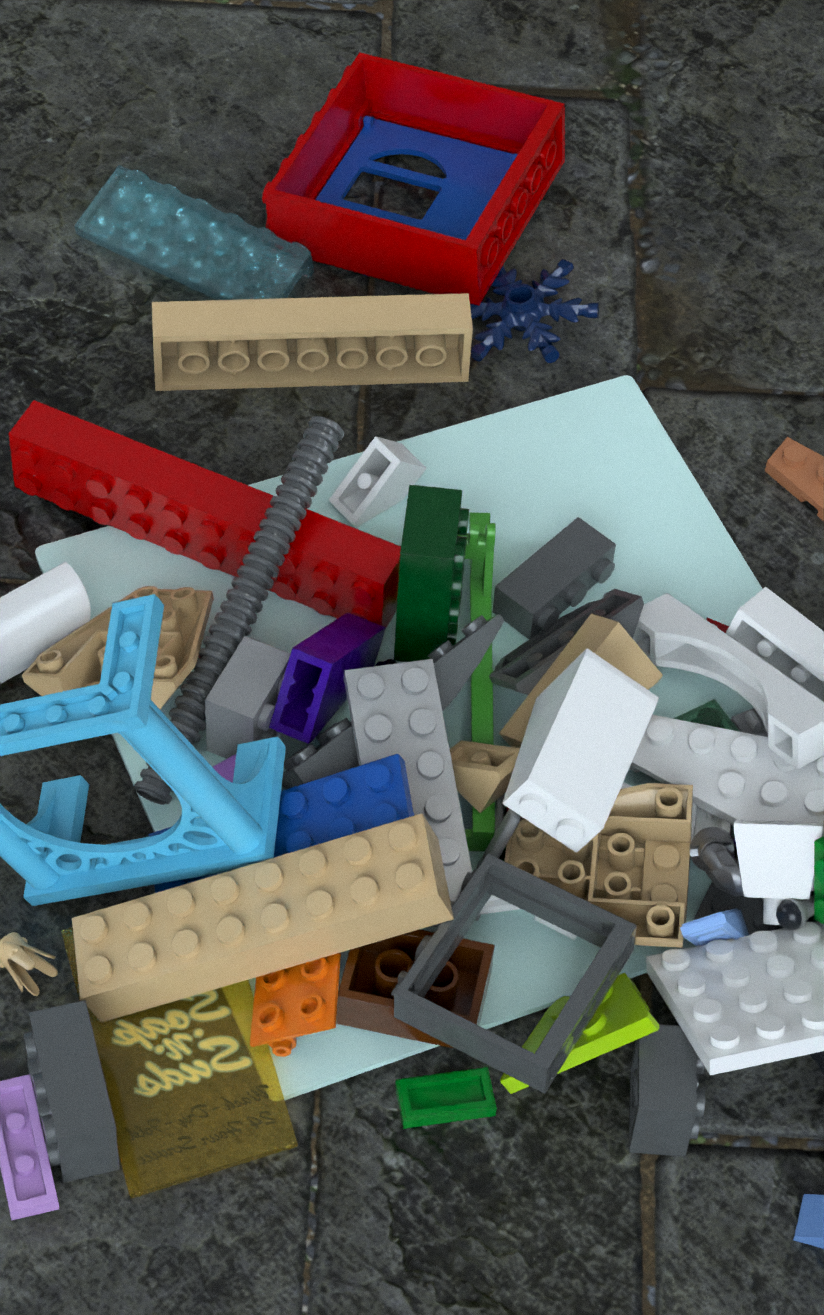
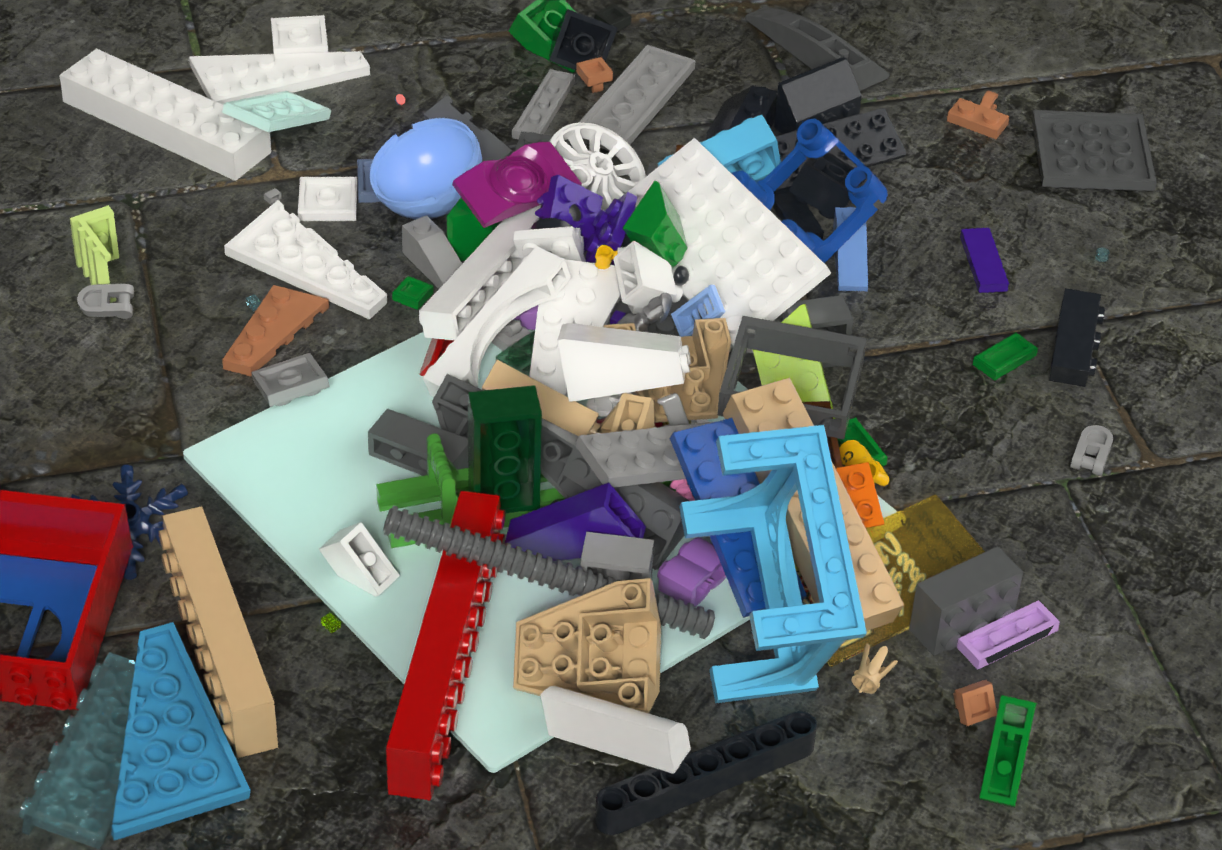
camera: 105 degrees left, 10 degrees down
(129, 272) = (173, 743): none -> dark azure wing
(381, 1059) = (854, 453): none -> yellow piece
(724, 486) = (290, 380): none -> light grey plate

